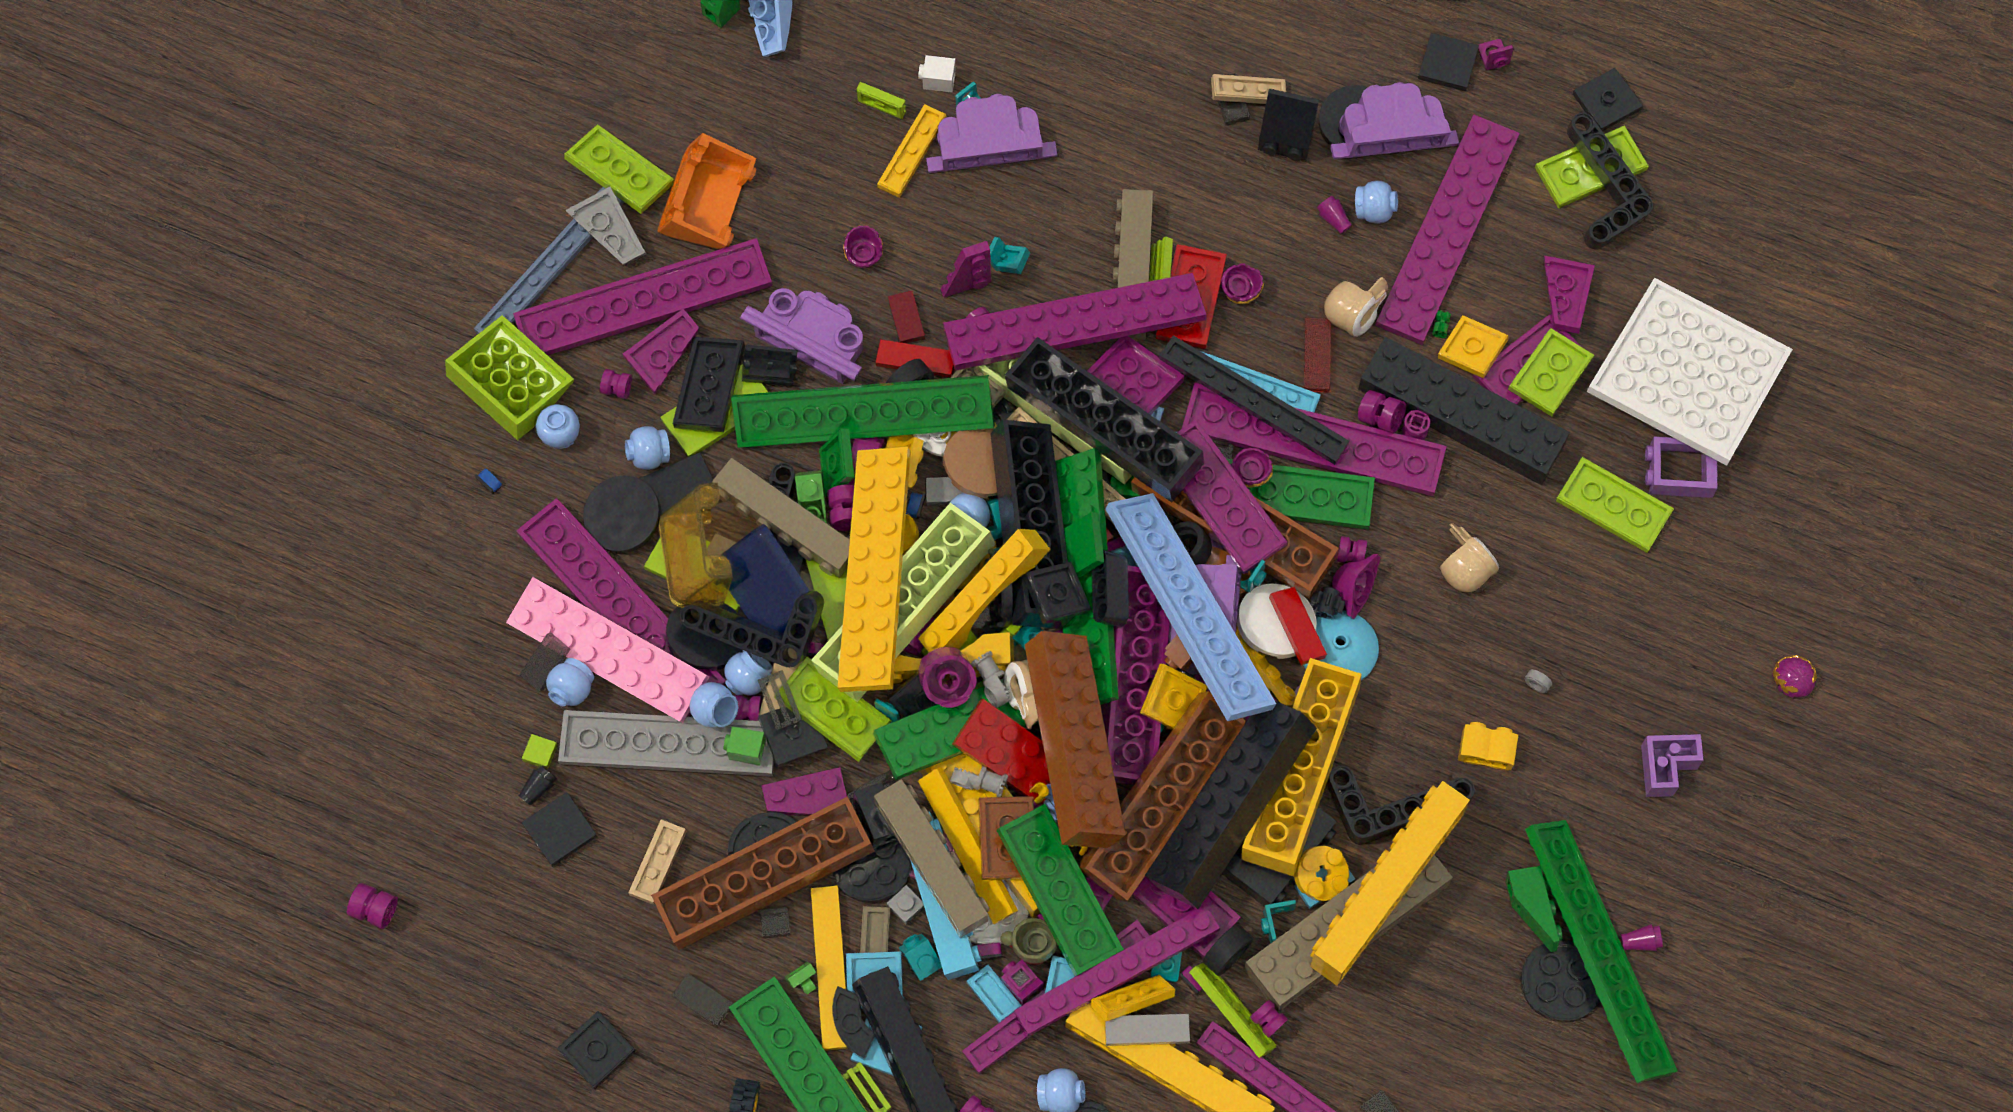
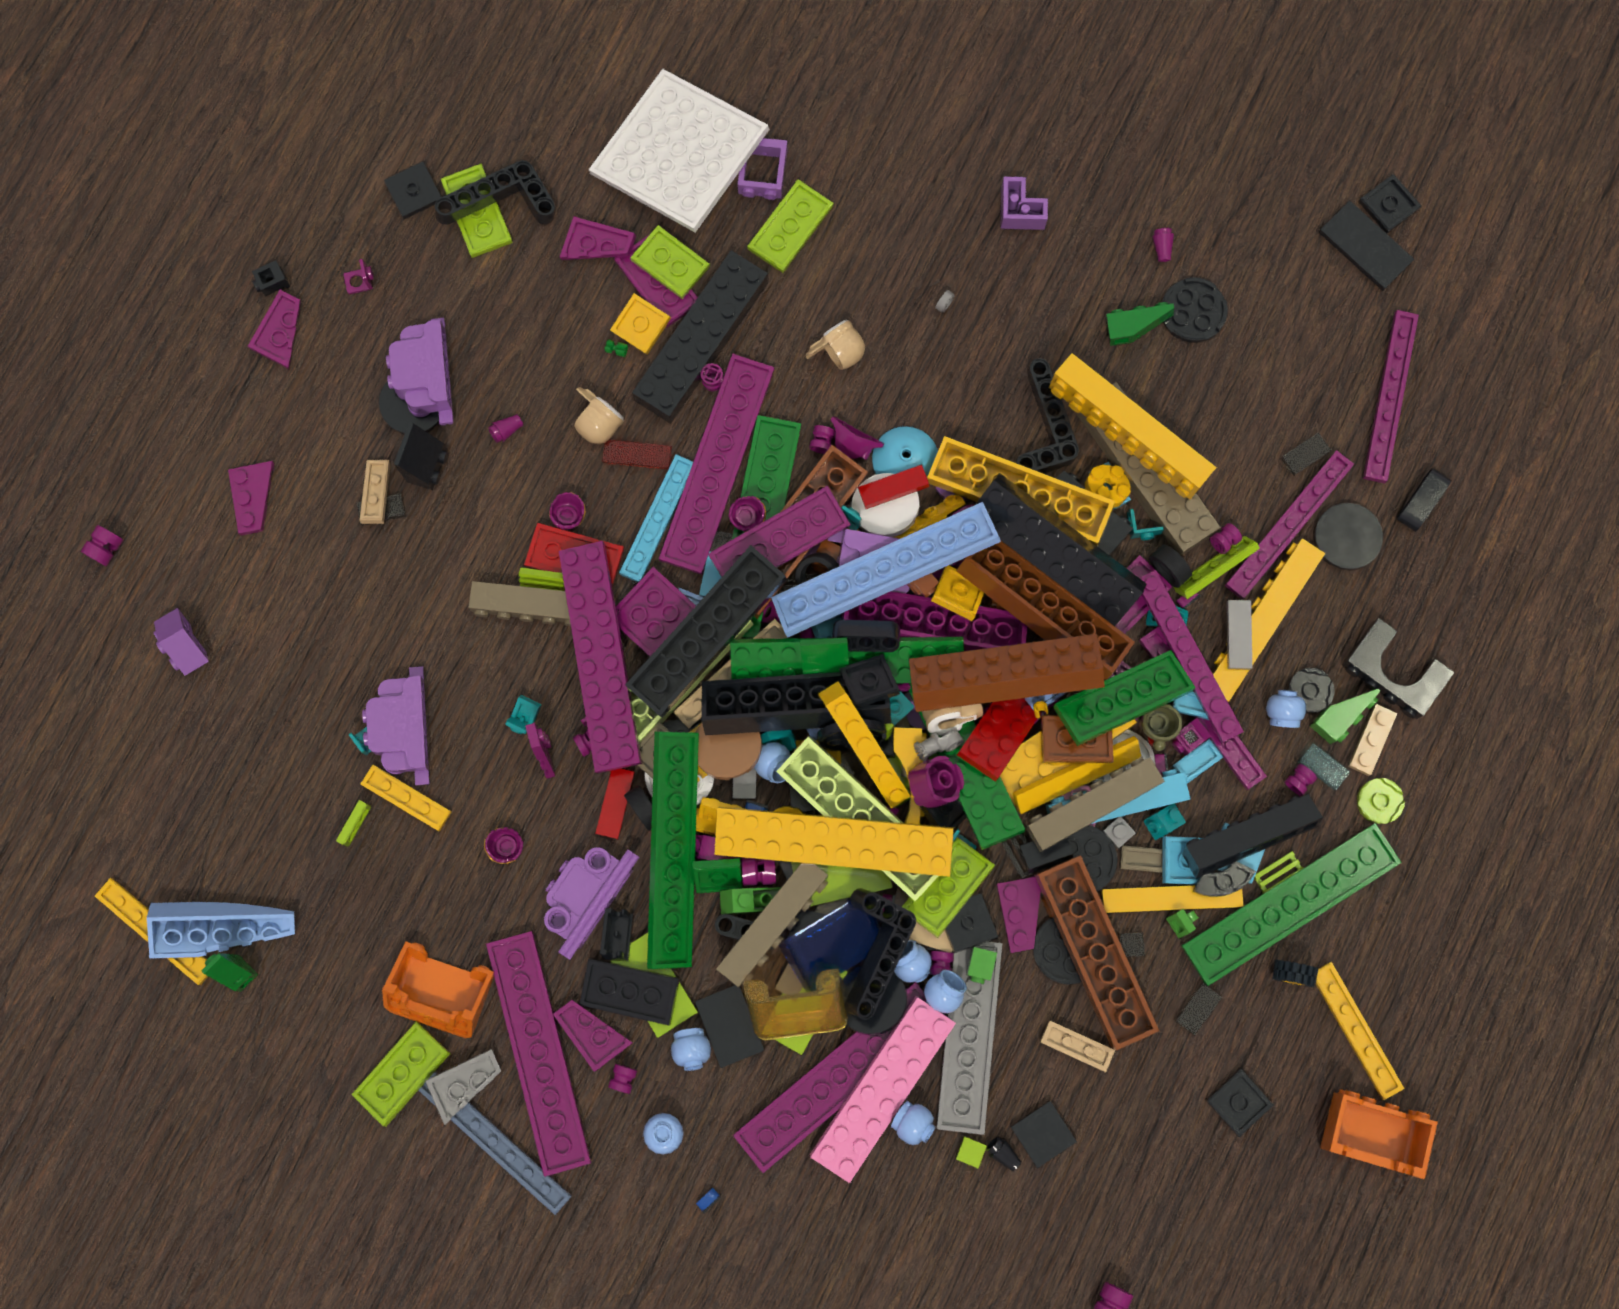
camera: 90 degrees left, 10 degrees up
(507, 376) = (609, 1180): lime slope -> none
(545, 658) = (891, 1146): clear smoke tile -> none
(622, 513) = (751, 1074): black tile -> none
(771, 678) = (963, 925): clear smoke tile -> none
(906, 317) = (574, 809): dark red tile -> none
(938, 73) = (330, 769): white brick -> none
(986, 780) = (1026, 756): light grey connector -> none
(1132, 998) = (1210, 645): yellow tile -> none
(1254, 400) = (681, 508): black plate -> none
(1327, 603) = (872, 461): black gear -> none
(1375, 202) = (499, 390): light blue piece -> none
(1378, 410) = (695, 410): magenta wheel -> none
(1447, 230) = (525, 334): magenta plate -> none
(1448, 62) = (362, 319): black tile -> none
(1488, 746) = (1000, 346): yellow brick -> none
(1601, 951) = (1175, 275): green plate -> none
(1794, 676) = (947, 104): magenta hair -> none

